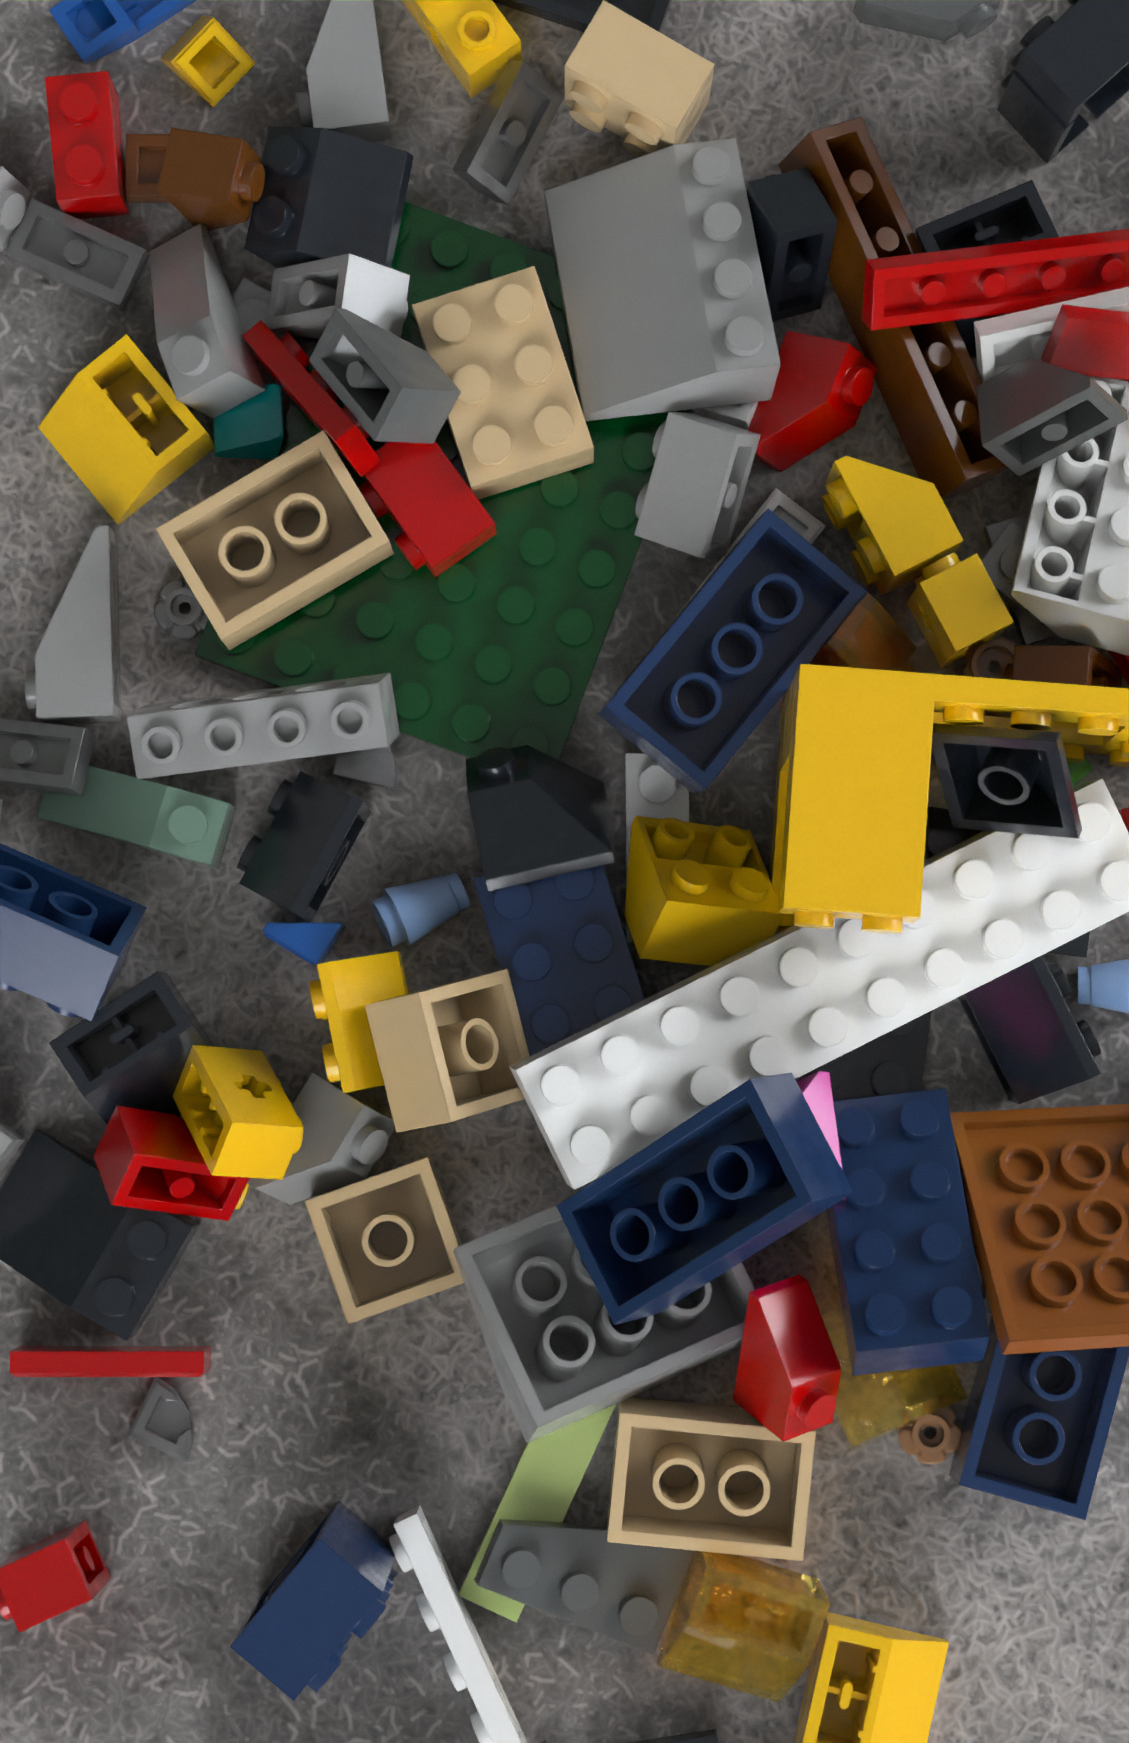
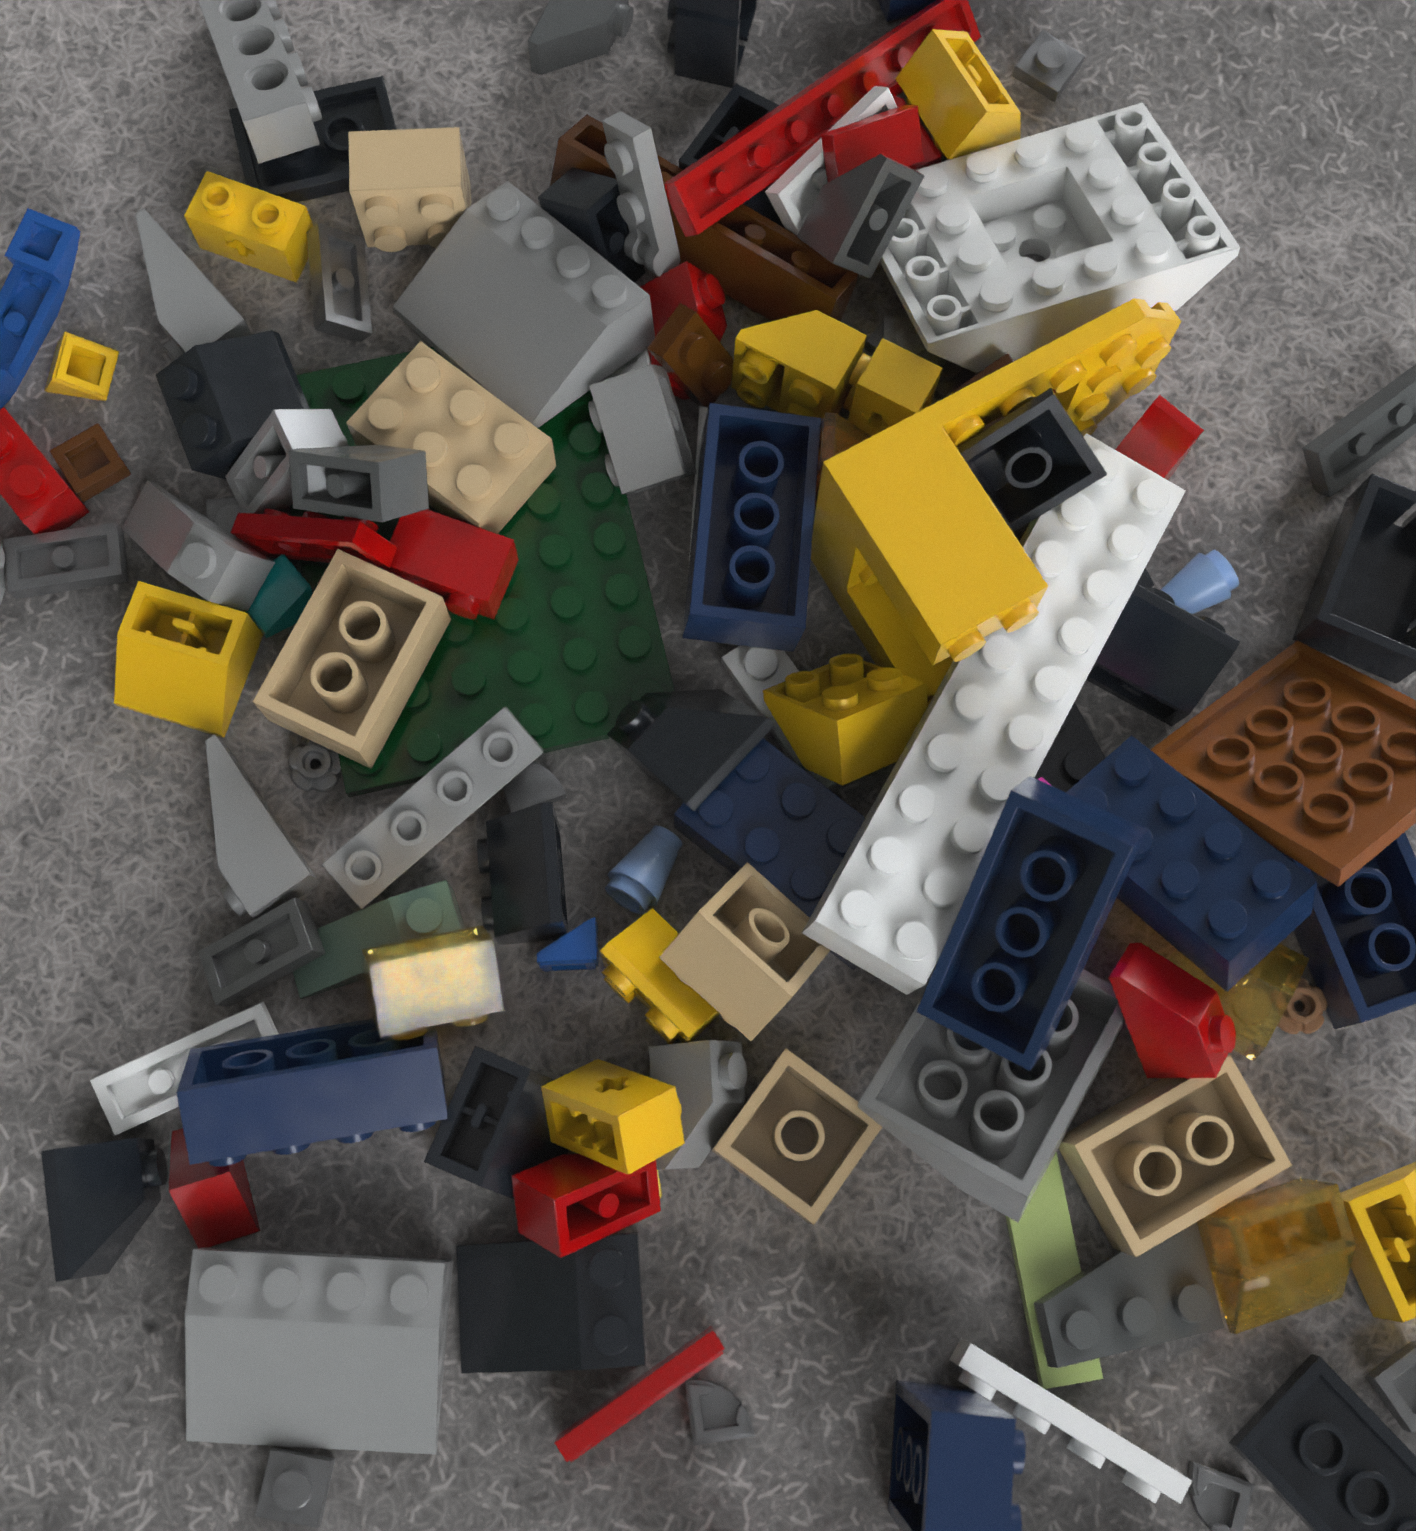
camera: 40 degrees left, 10 degrees down
(154, 891) = (432, 982): none -> clear yellow slope
(211, 178) = (133, 431): reddish brown slope -> none
(793, 443) = (693, 356): none -> reddish brown plate
(844, 255) = (642, 193): none -> light grey plate

